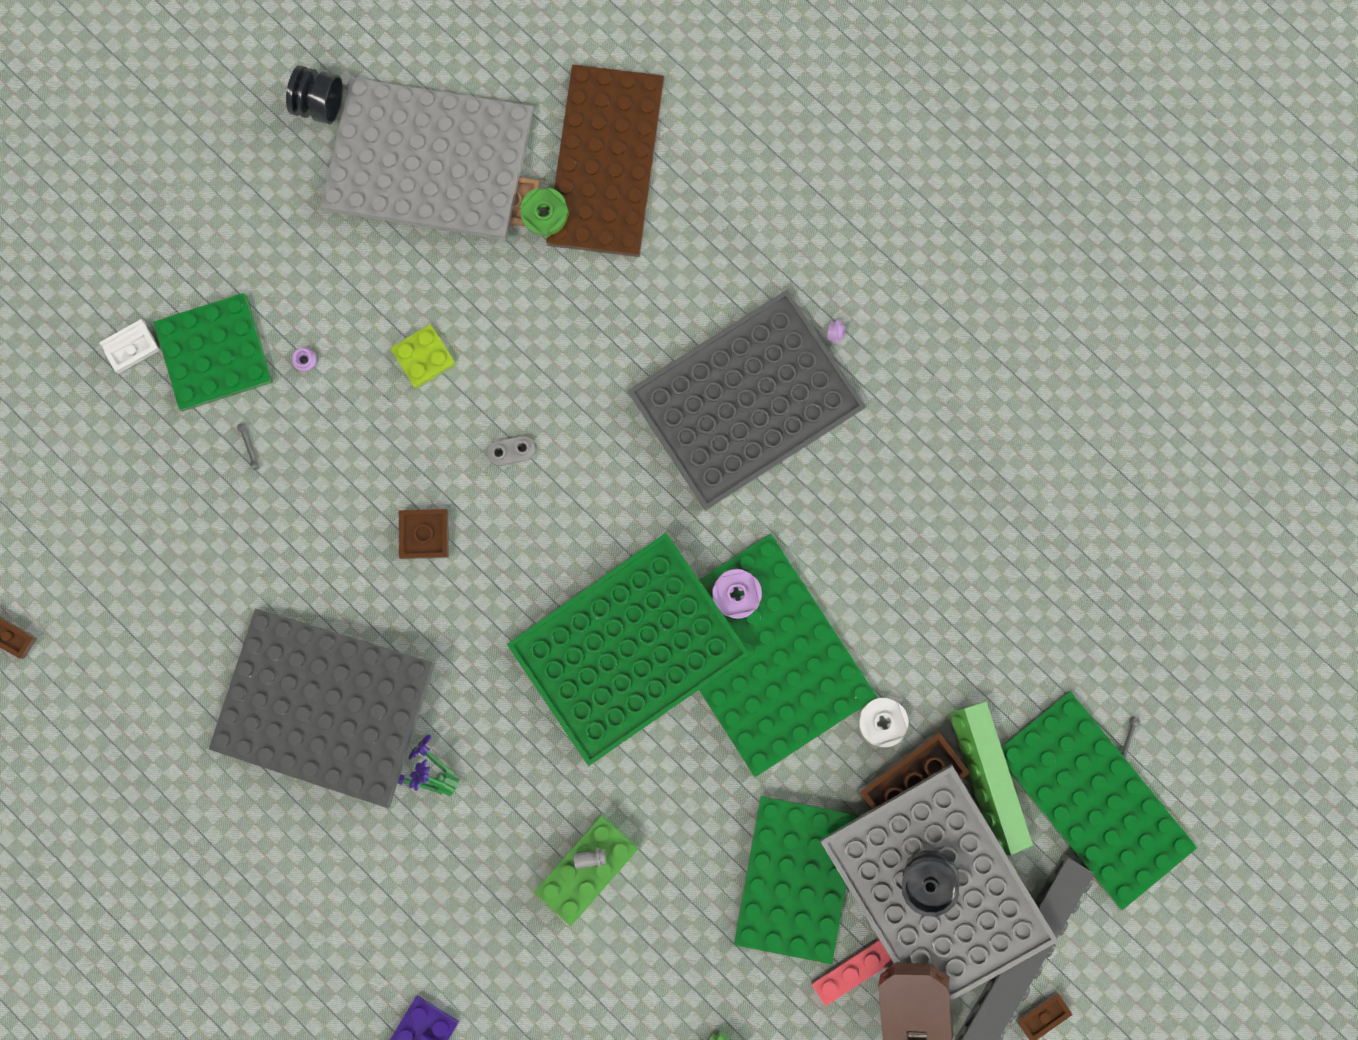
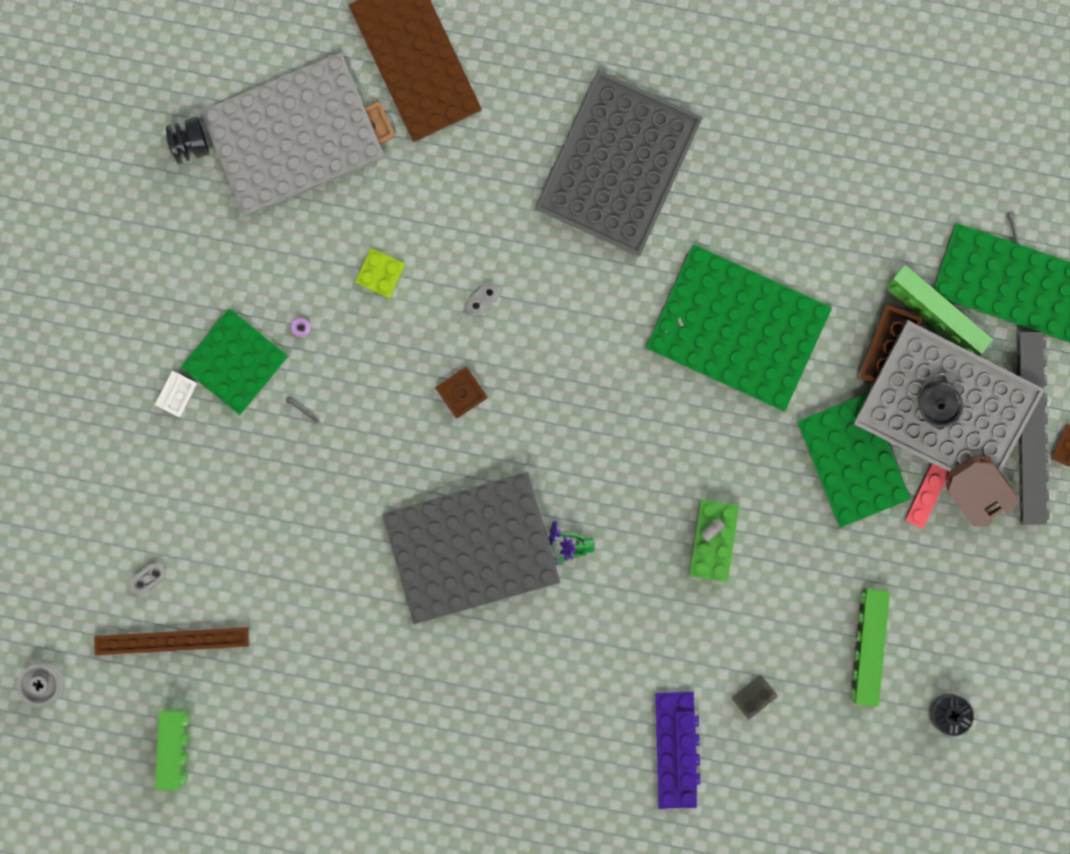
camera: 35 degrees left, 5 degrees up
(548, 224) = (393, 113): bright green plate -> none
(628, 649) = (648, 381): green plate -> none
(746, 583) = (695, 309): lavender plate -> none
(836, 331) = (650, 78): lavender plate -> none
(895, 729) = (857, 321): white plate -> none

